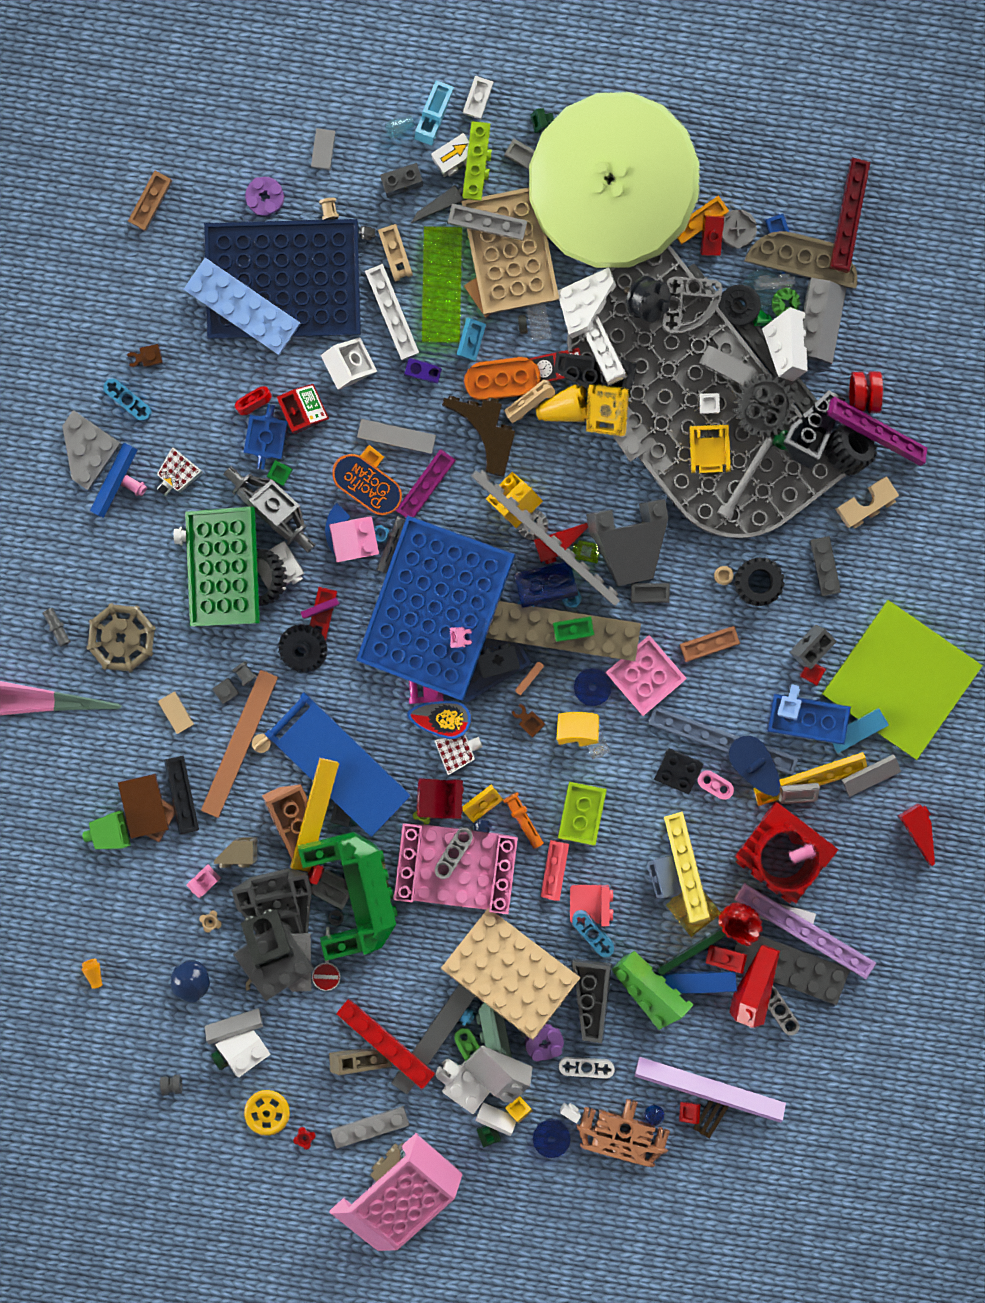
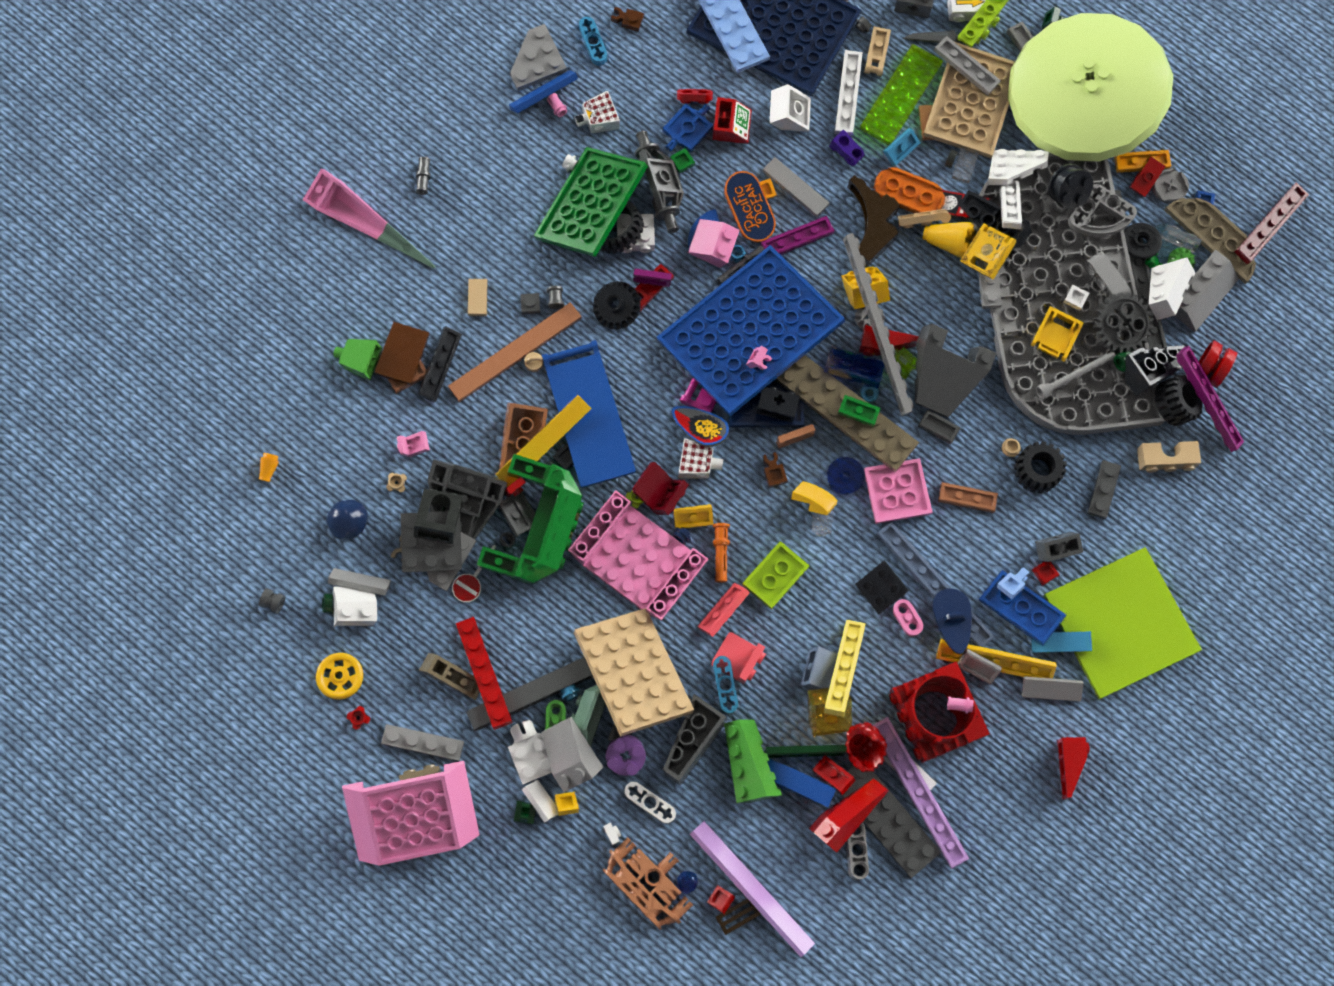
camera: 25 degrees right, 15 degrees down
(132, 638) = (474, 204): dark tan plate -> none
(241, 852) = (459, 434): dark tan slope -> none
(449, 861) = (649, 532): light grey beam -> none
(553, 1128) = (582, 860): clear blue plate -> none

